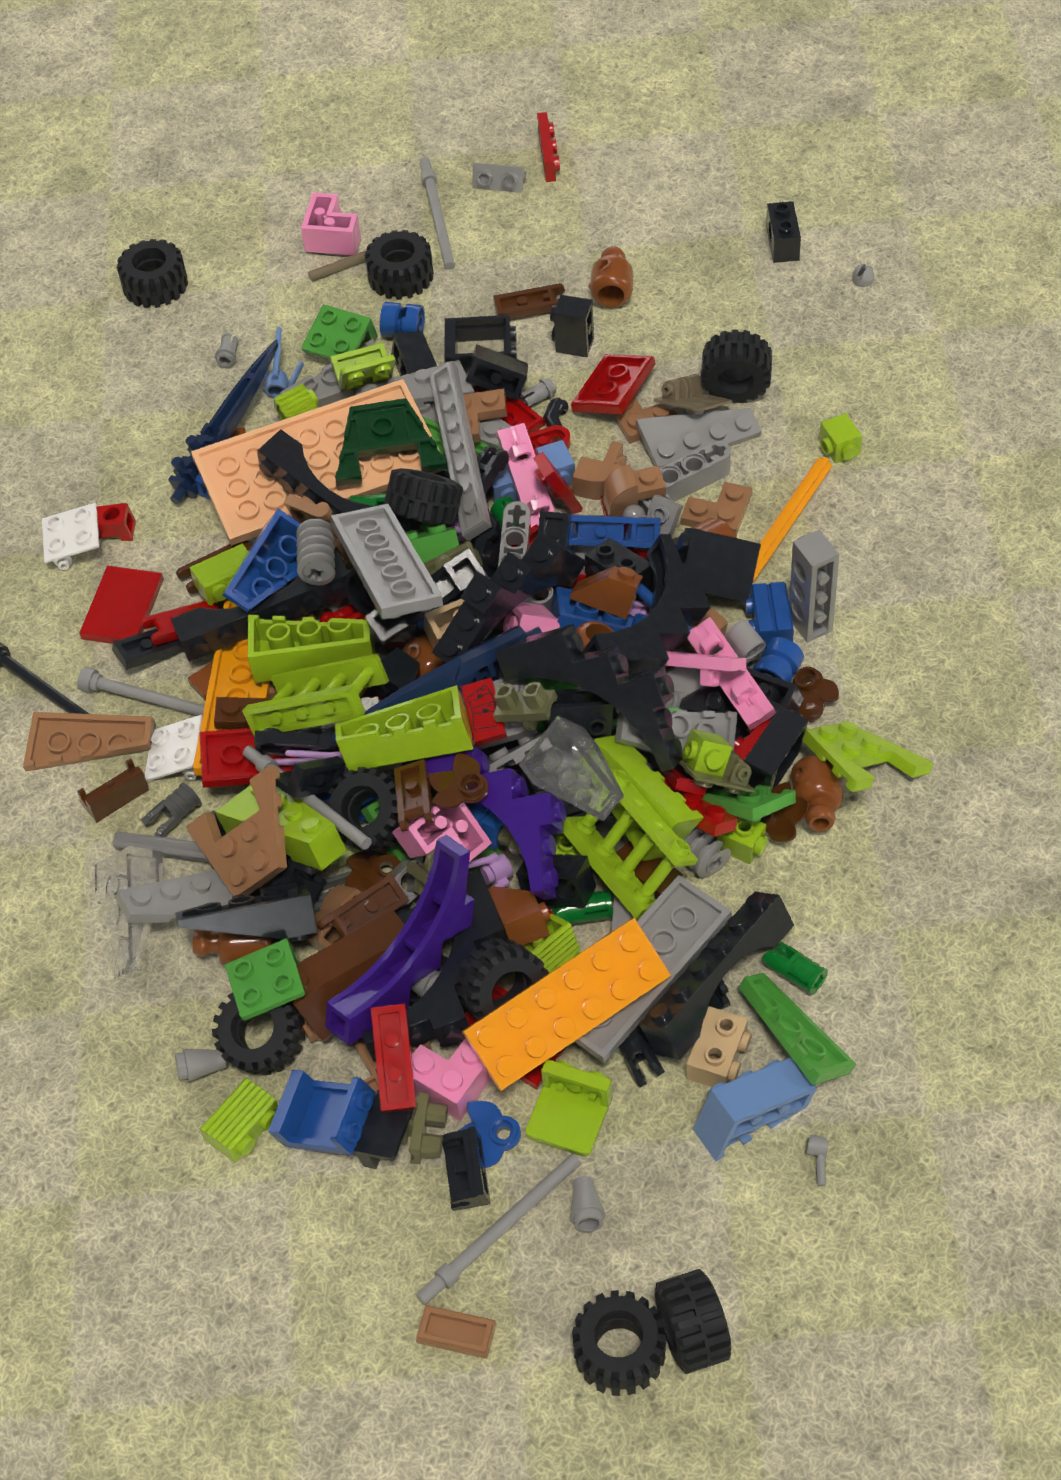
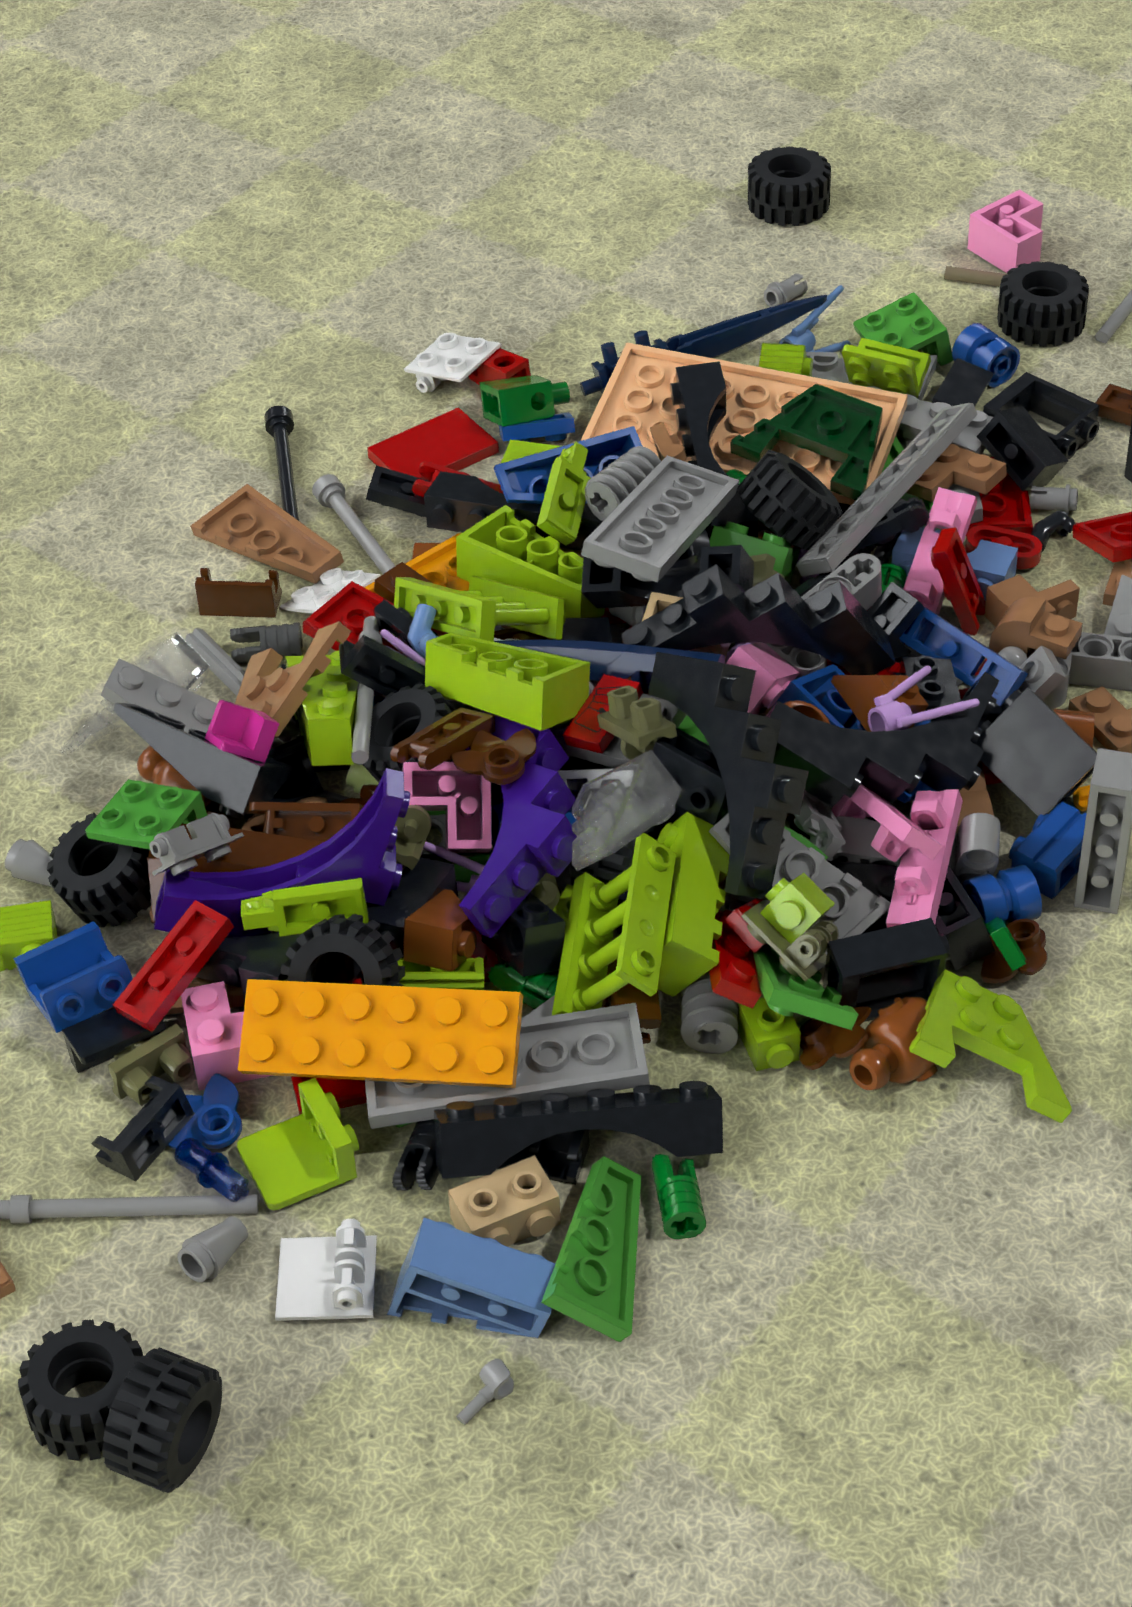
camera: 40 degrees right, 10 degrees down
(149, 535) = (521, 399): none -> green torso
(175, 546) = (552, 428): none -> blue plate
(272, 880) = (242, 731): none -> dark pink panel
(285, 581) = (565, 495): none -> lime hinge
(306, 738) = (420, 628): none -> medium blue arm
(335, 974) = (179, 853): none -> light grey hinge
(438, 962) = (301, 907): none -> lime hinge
(534, 1160) = (212, 1169): none -> clear blue axle
(643, 597) = (895, 716): none -> lavender plant
(663, 1168) = (327, 1275): none -> white hinge
(812, 691) = (1006, 943): none -> green tile

